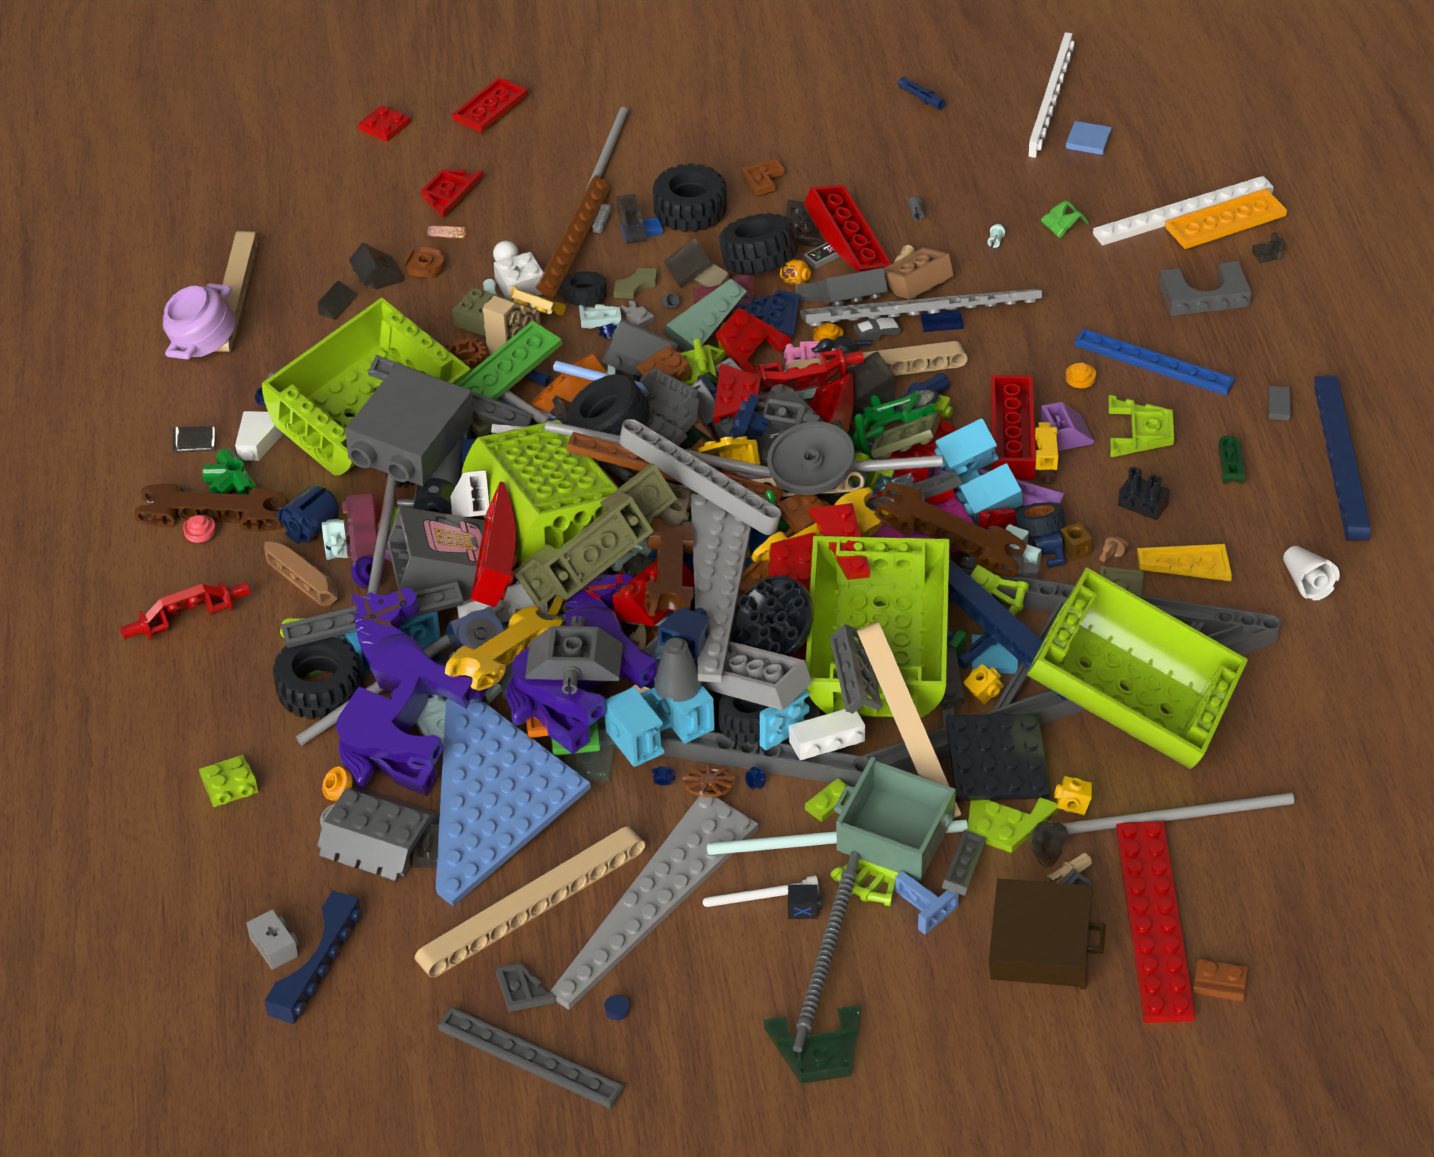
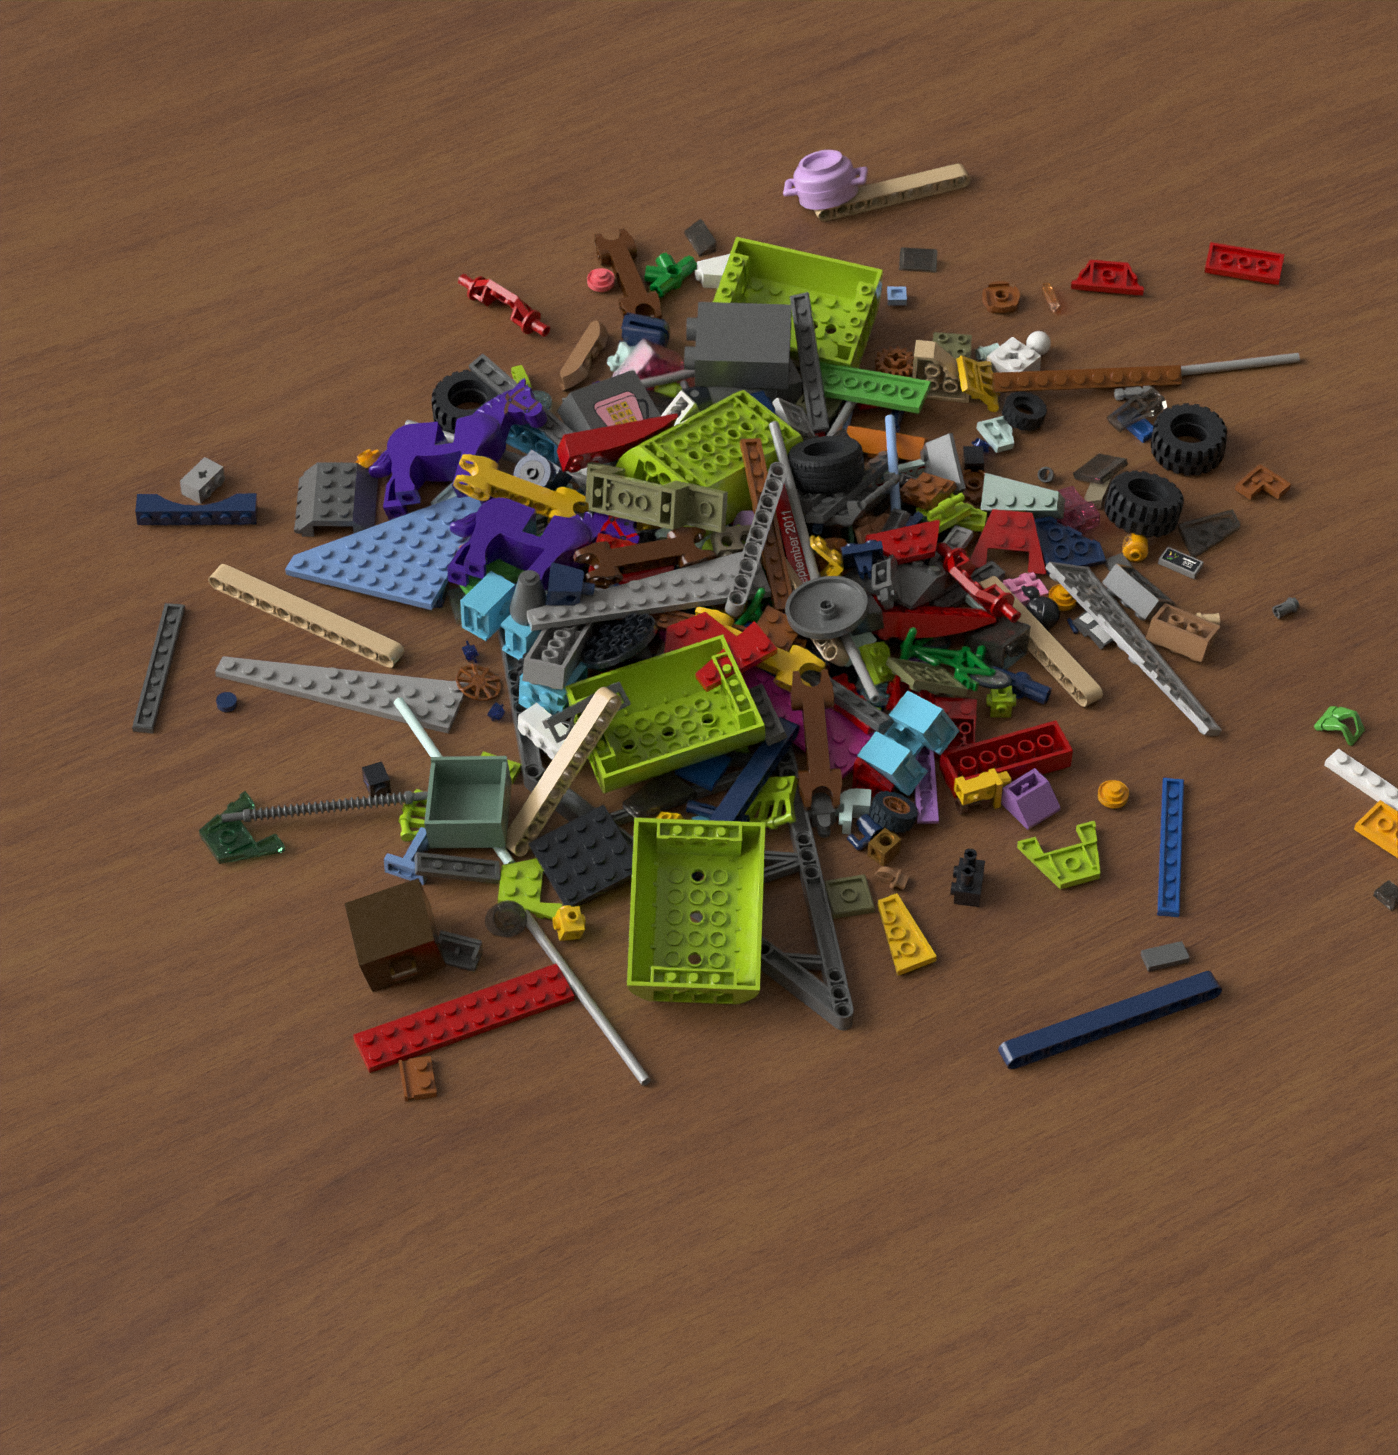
camera: 65 degrees right, 5 degrees up
(228, 780) = (347, 399): lime plate -> none
(375, 267) = (972, 269): clear smoke slope -> none
(384, 123) = (1175, 205): red plate -> none
(426, 849) = (330, 534): clear smoke plate -> none
(521, 989) = (218, 638): dark grey wing -> none
(574, 655) = (510, 530): dark grey slope -> none
(637, 316) = (1016, 461): light grey plate -> none
(640, 280) = (1051, 442): olive tile -> none
(755, 894) = (397, 780): white piece -> none
(845, 227) = (1211, 563): red slope -> none
(941, 321) = (1135, 675): clear blue tile -> none
(959, 642) = (710, 797): green tile -> none
(996, 233) = (1285, 678): light aqua pin -> none
(1079, 863) = (492, 946): tan axle -> none
(1184, 300) = (1301, 880): dark grey arch -> none
(1231, 459) = (1059, 936): dark green plate -> none
(1311, 572) = (928, 1026): white cone -> none

